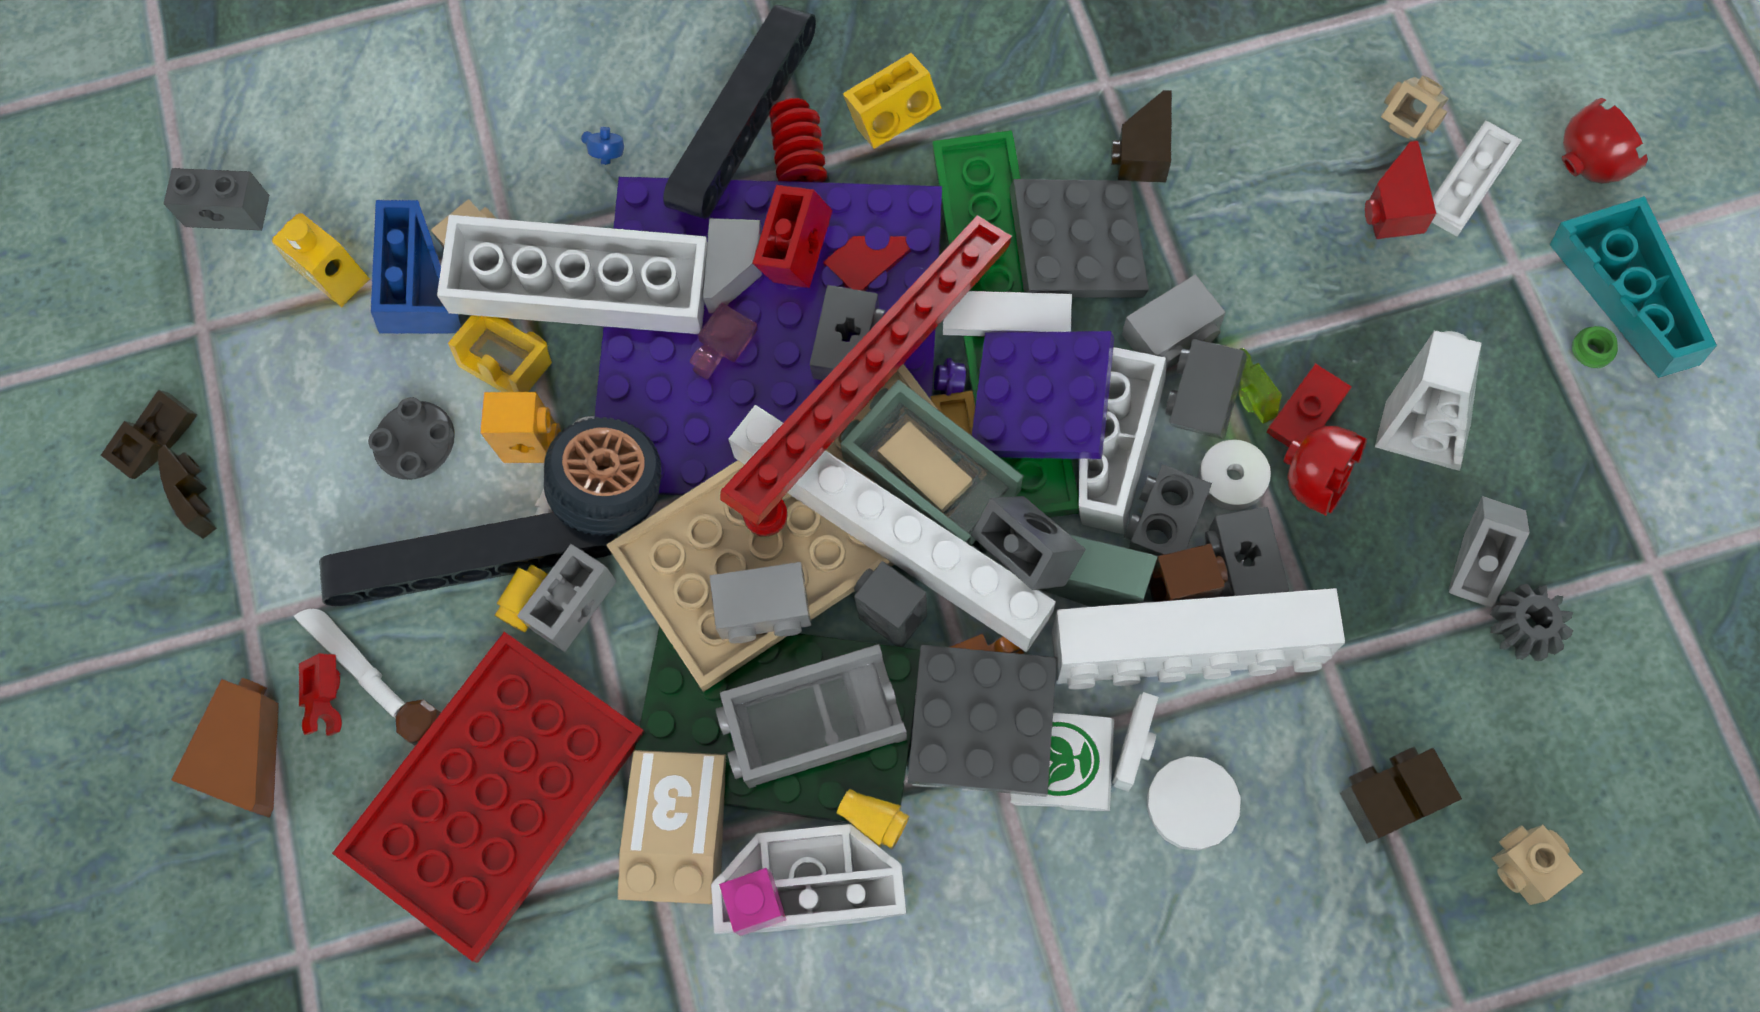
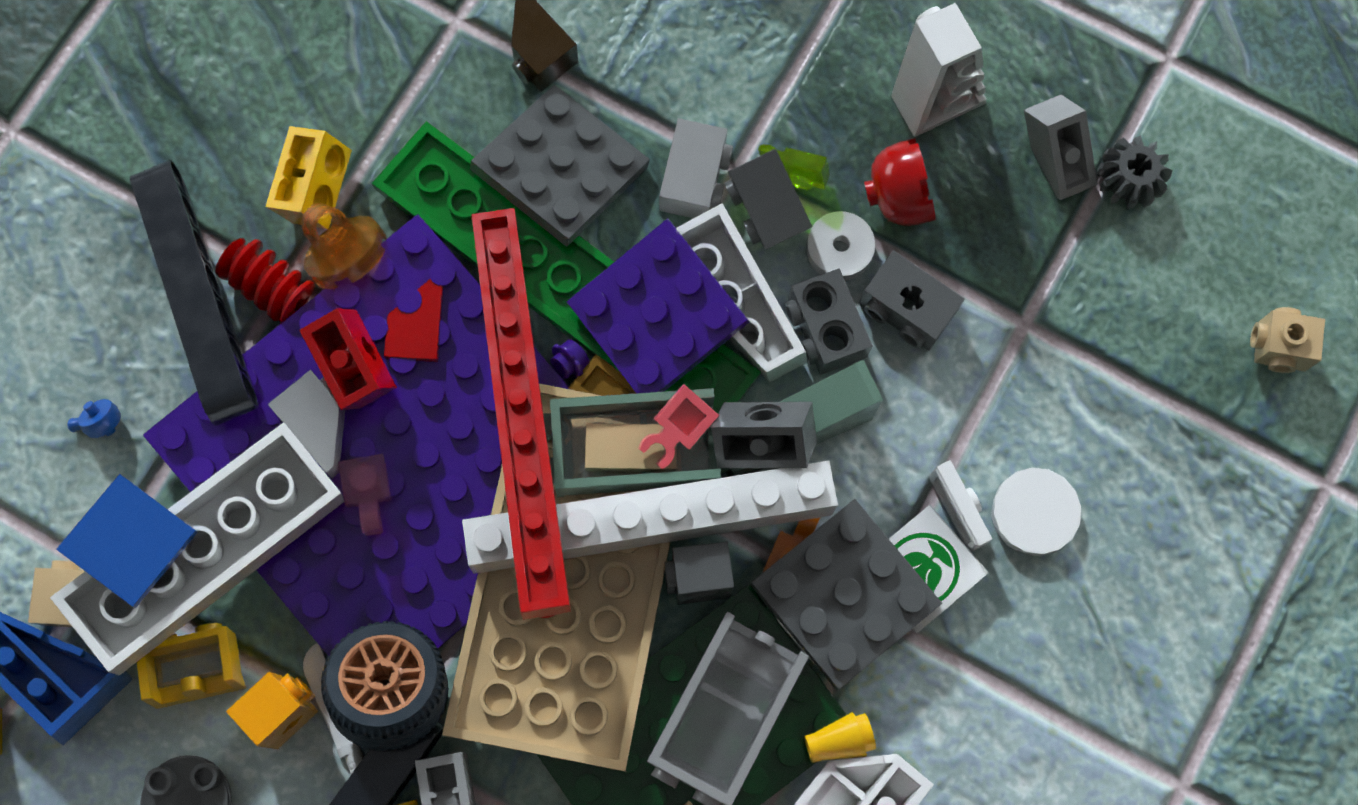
camera: 55 degrees left, 5 degrees up
(529, 221) = (127, 541): none -> blue tile
(760, 602) = (611, 664): light grey brick -> none
(842, 312) = (445, 382): dark grey brick -> none
(867, 167) = (342, 251): none -> clear orange tile
(976, 477) = (683, 421): none -> coral plate
(1009, 312) = (572, 268): white tile -> none
(1188, 575) = (894, 355): reddish brown piece -> none
(1196, 637) = (939, 386): white brick -> none
(1309, 406) = (846, 149): red plate -> none
(1400, 794) = (1159, 384): dark brown piece -> none

